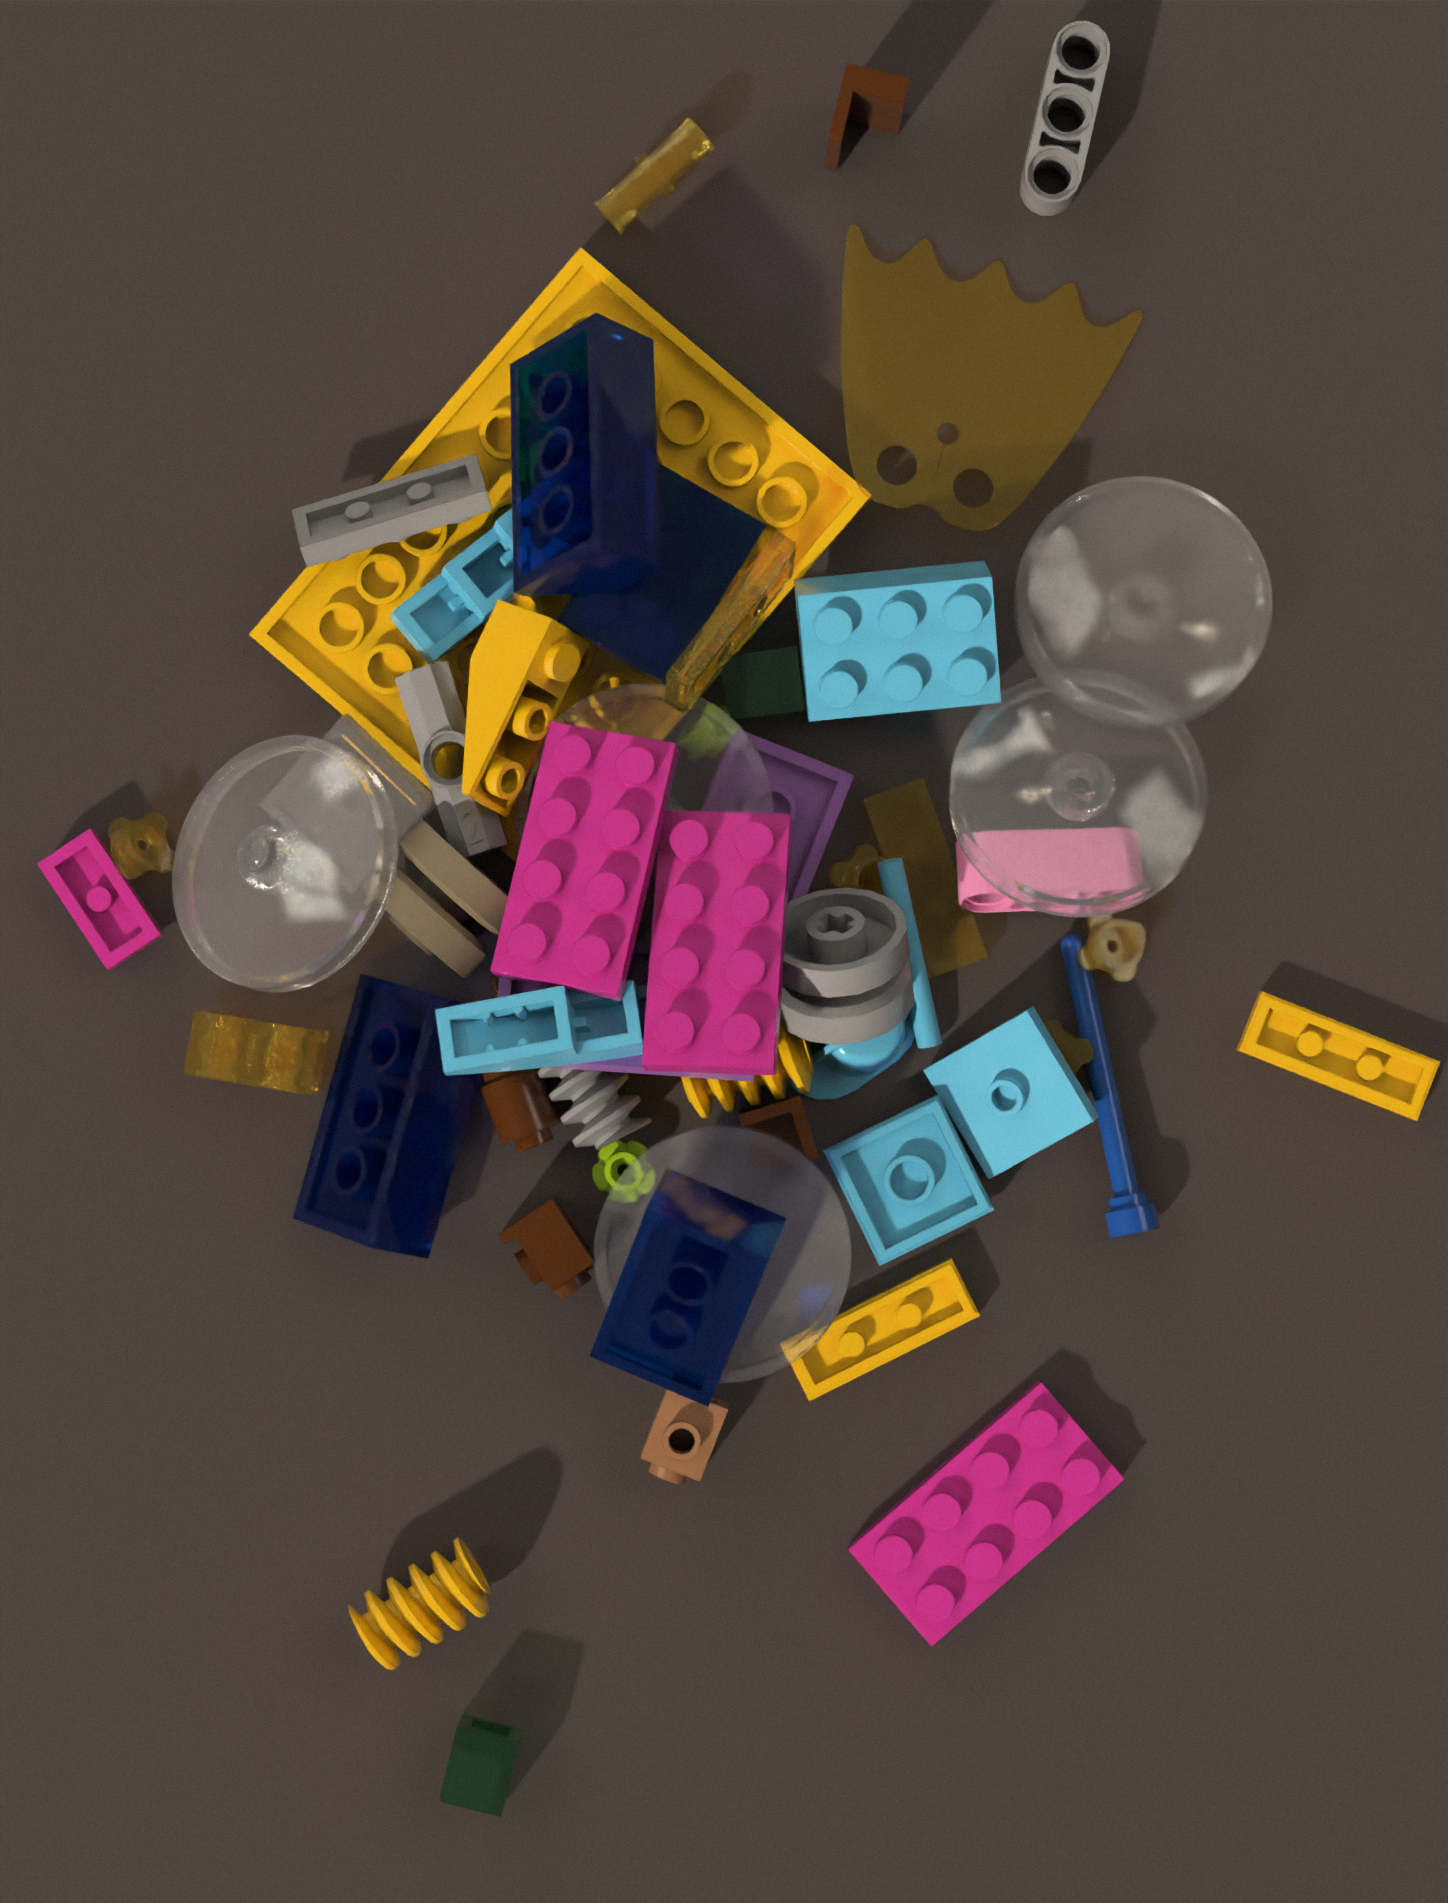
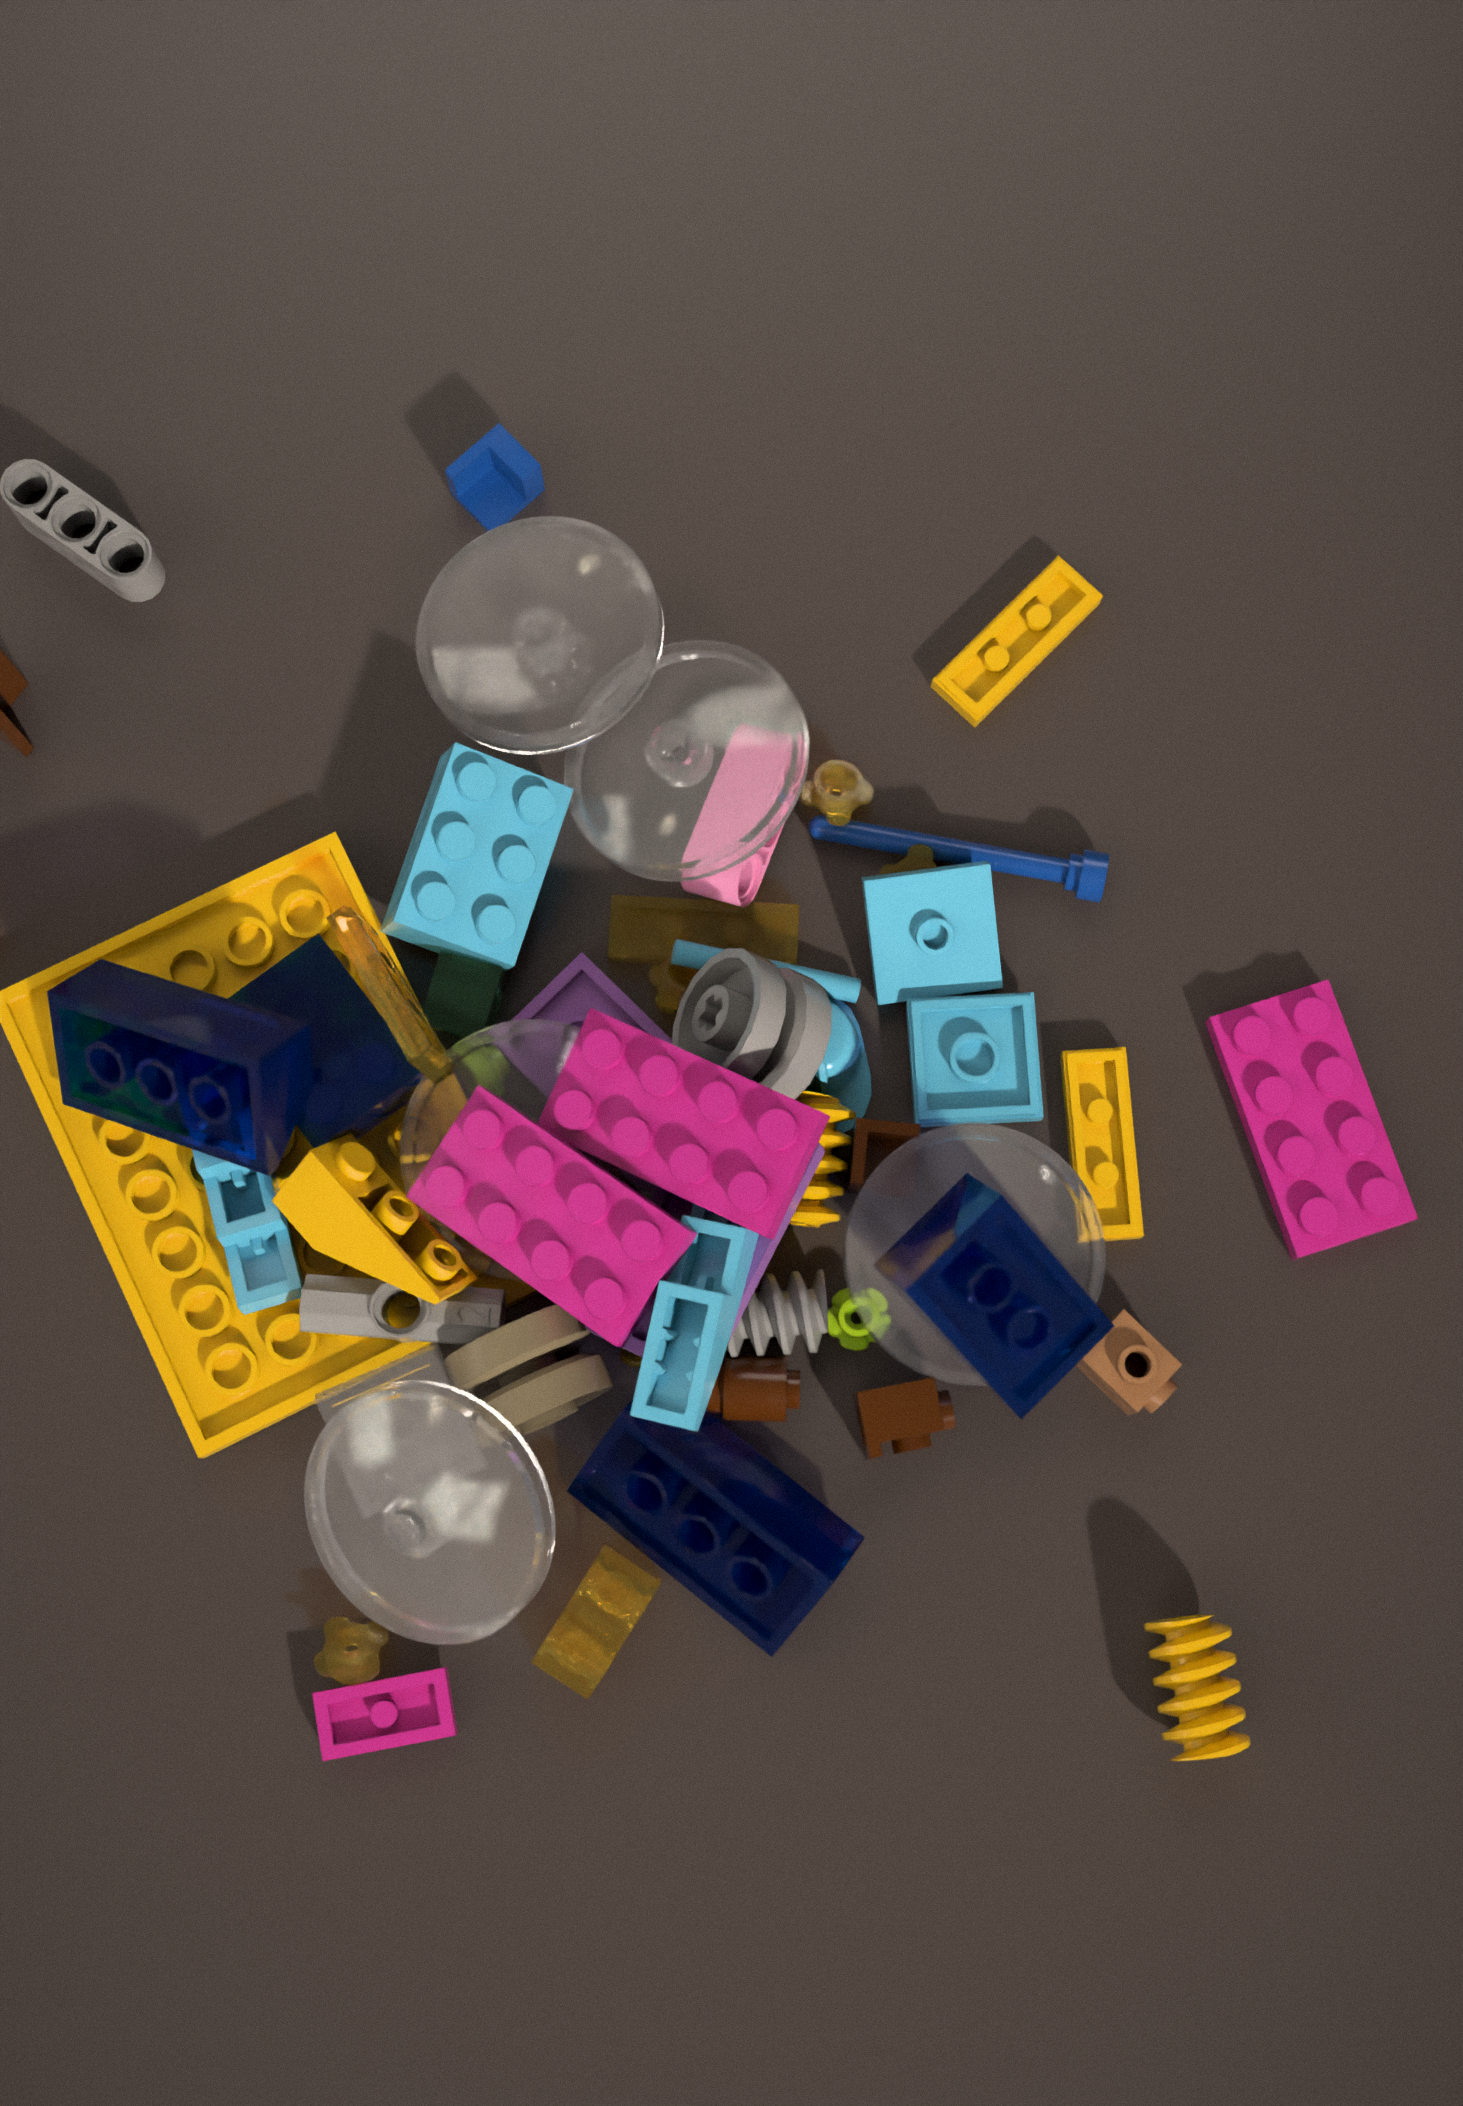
camera: 70 degrees left, 10 degrees down
(391, 510) = (144, 1268): light grey plate -> none
(481, 1765) = (1375, 1694): clear green panel -> none
(968, 356) = (250, 700): clear yellow piece -> none
(1284, 488) = (495, 478): none -> blue panel

